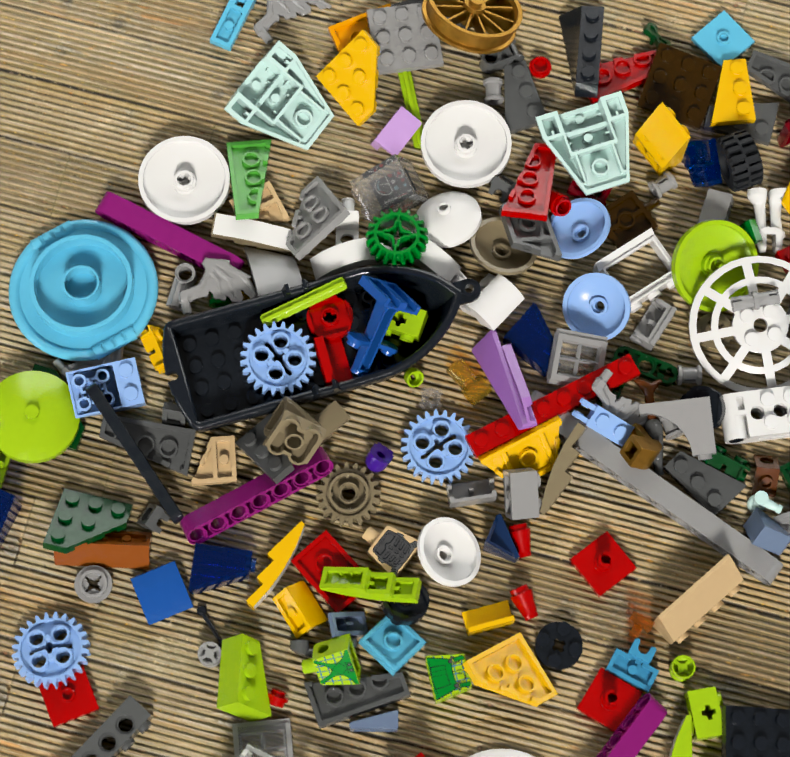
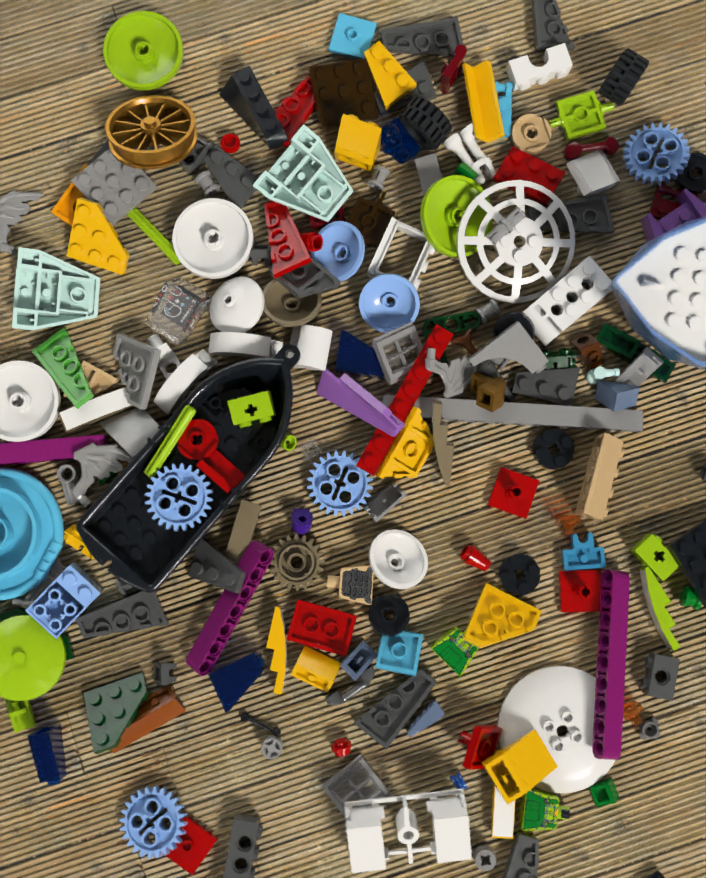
camera: 30 degrees left, 10 degrees up
(93, 573) = (144, 756): light grey gear -> none
(134, 453) = (117, 636): black beam -> none
(161, 592) = (206, 724): blue slope -> none
(217, 463) = (185, 599): tan wing -> none
(242, 679) = (308, 752): lime wedge -> none
(293, 433) = (227, 548): dark tan piece -> none
(334, 662) = (367, 695): lime torso -> none
(370, 585) = (357, 622): lime slope -> none
(389, 300) = (234, 401): blue piece -> none
(397, 132) = (155, 261): lavender panel -> none
(414, 241) = (191, 352): green gear -> none
(473, 386) = (334, 420): clear yellow piece -> none
(487, 618) = (456, 587): yellow panel -> none
(500, 541) = (429, 525): dark blue slope -> none
(521, 493) = (423, 480): light grey brick -> none
(522, 539) = (443, 513): red cone -> none
(604, 422) = (451, 389): light blue hinge -> none
(652, 32) = (295, 63): dark green piece -> none
(653, 324) = (437, 289): light grey hinge -> none
(673, 534) = (564, 446): none -> black plate
(685, 670) = (621, 536): lime wheel -> none

